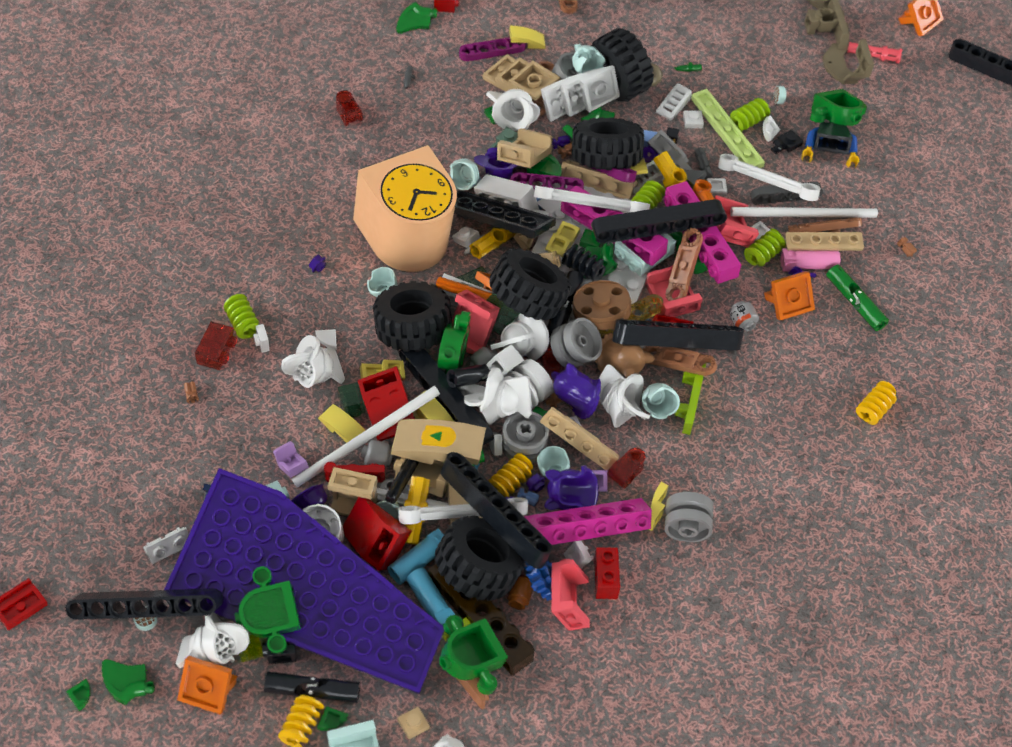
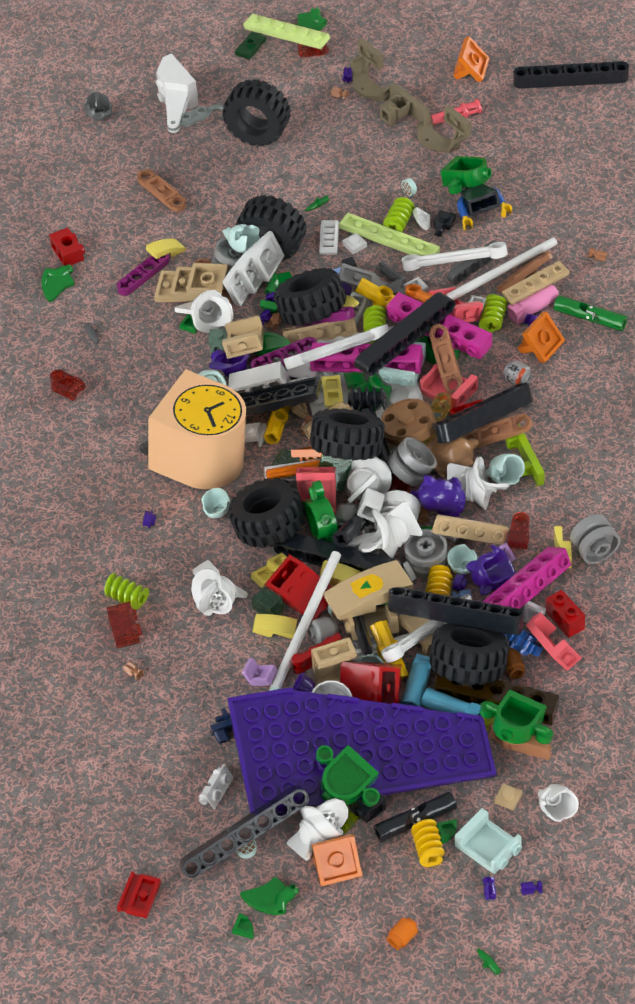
camera: 25 degrees left, 5 degrees down
(261, 338) = (156, 598): white plate -> none

